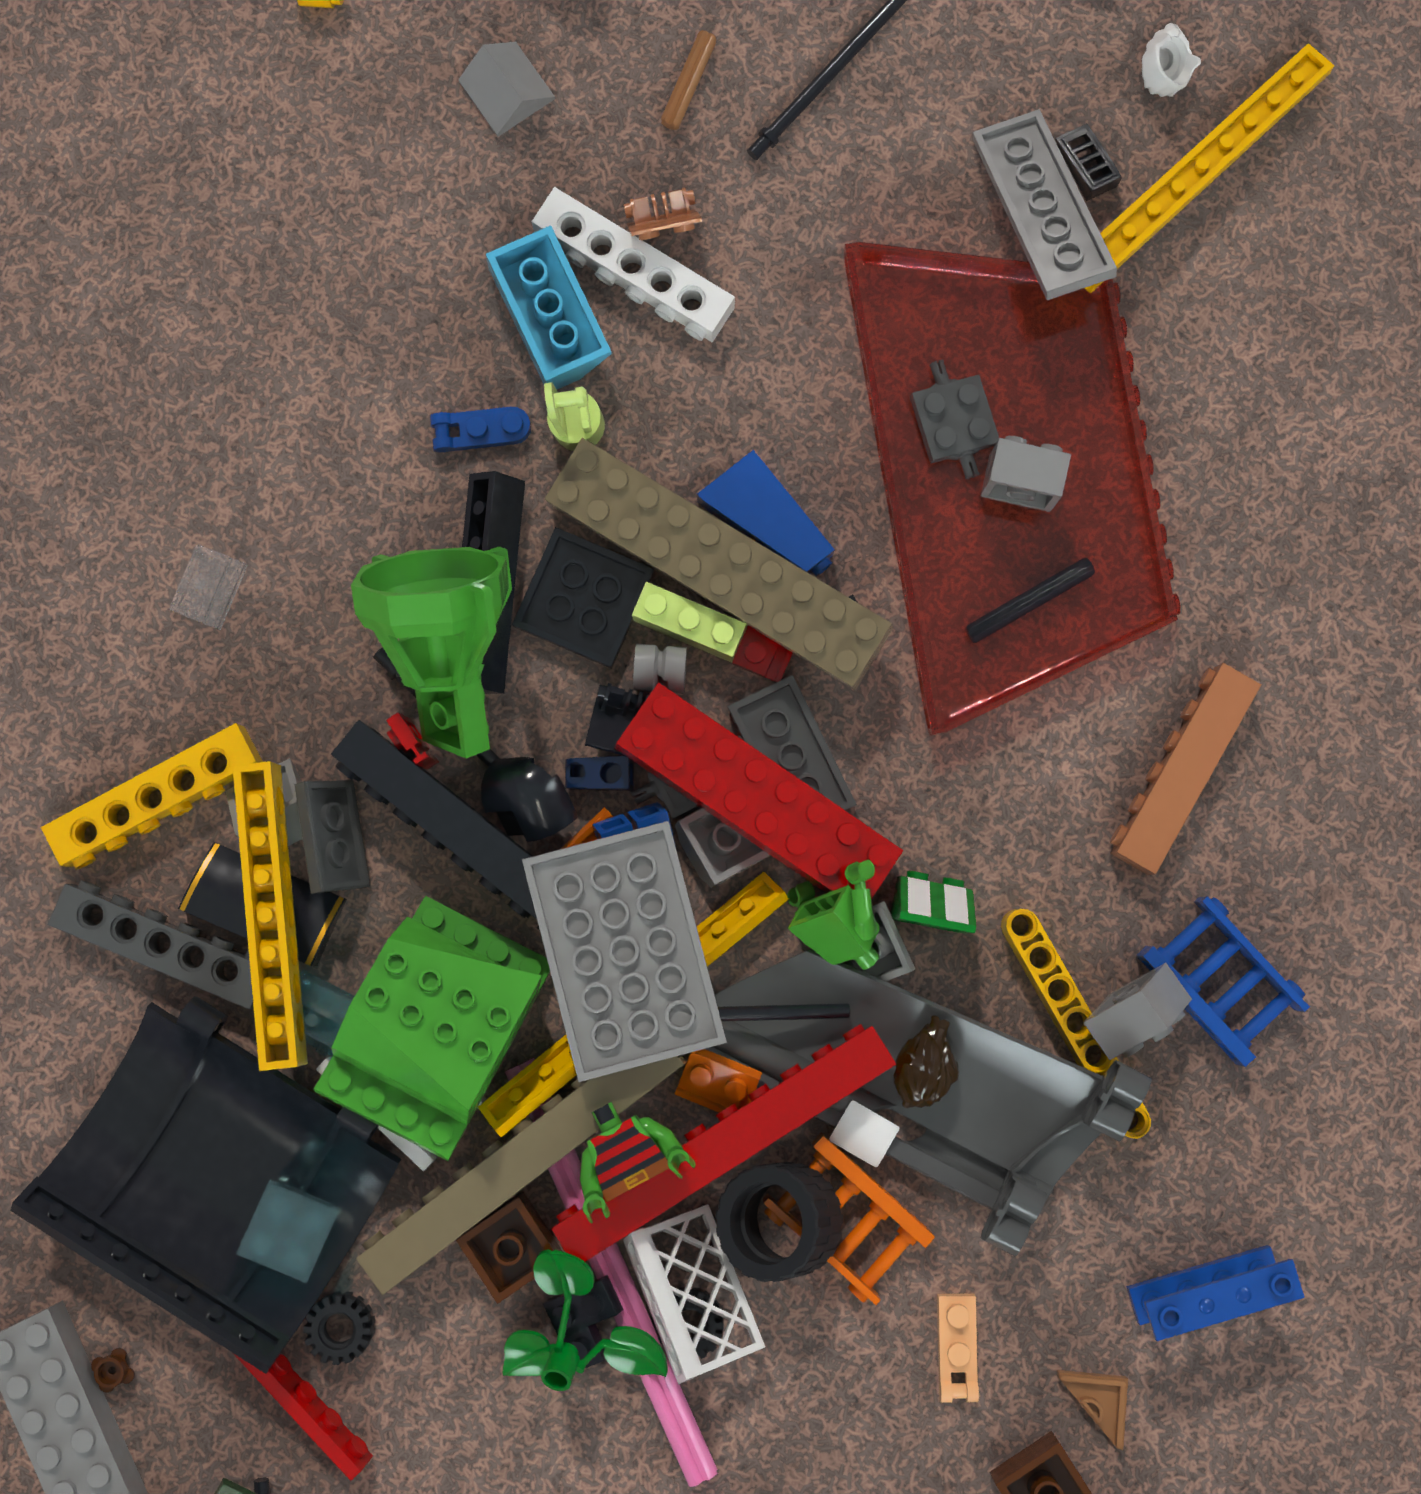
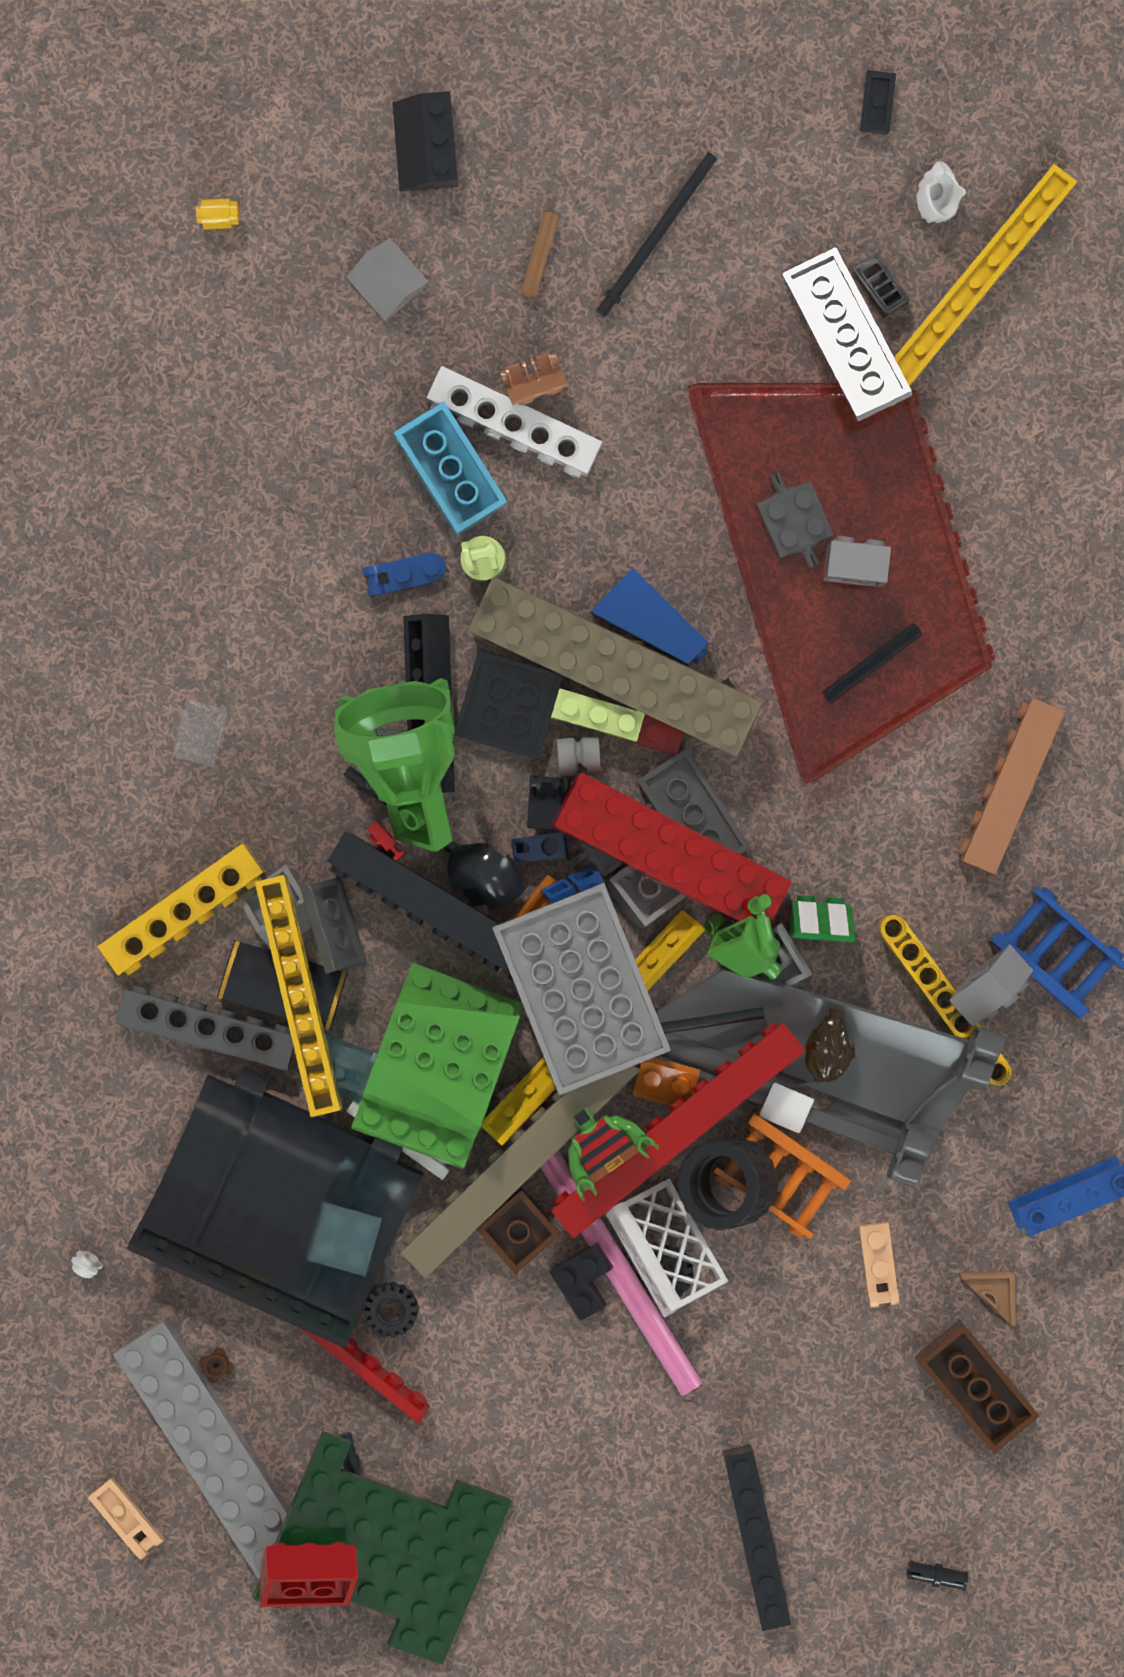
camera: 10 degrees left, 5 degrees up
(532, 1355) = (545, 1310): green plant -> none

